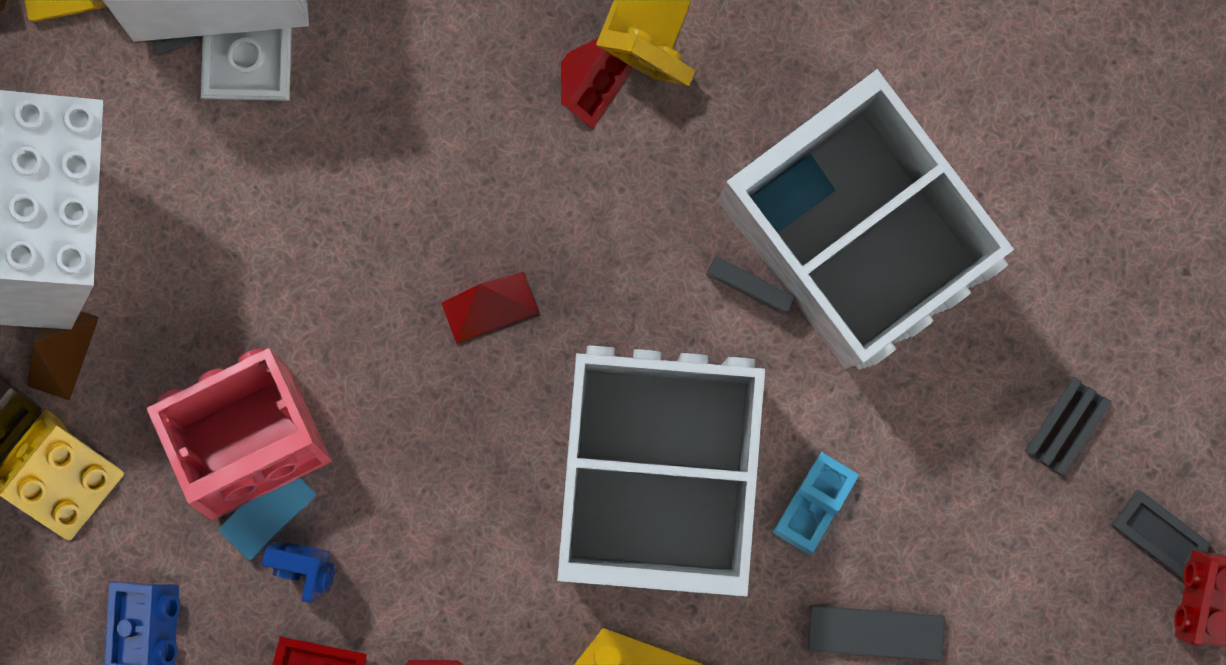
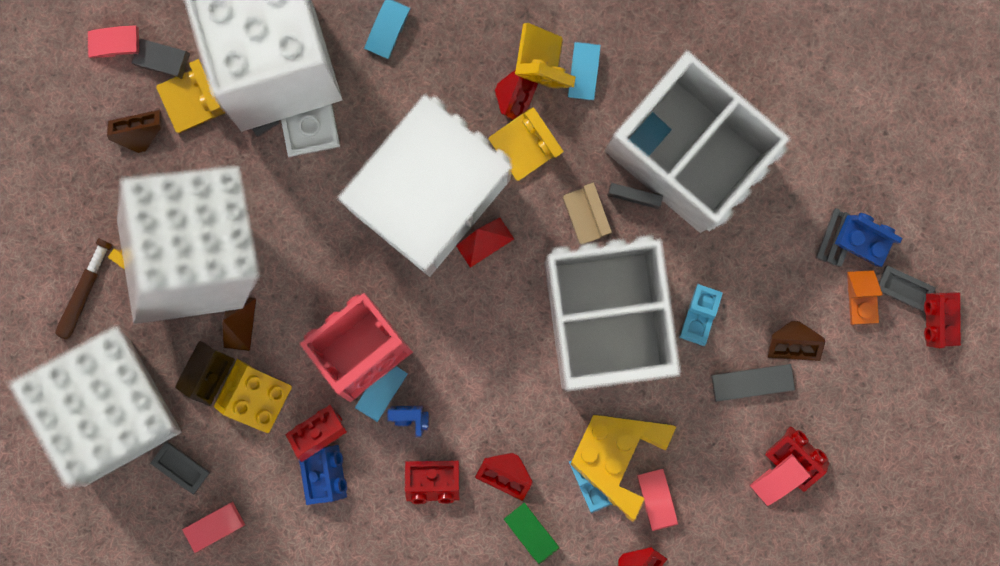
camera: 20 degrees left, 0 degrees up
(144, 558) = (316, 433): none -> red bracket
(409, 196) = (427, 184): none -> white container
(589, 162) = (526, 143): none -> yellow bracket
(665, 298) = (587, 214): none -> tan panel
(714, 62) = (585, 69): none -> medium azure slope
(961, 583) = (796, 342): none -> reddish brown slope
(1088, 533) = (863, 294): none -> orange slope
(1114, 439) = (867, 239): none -> blue bracket

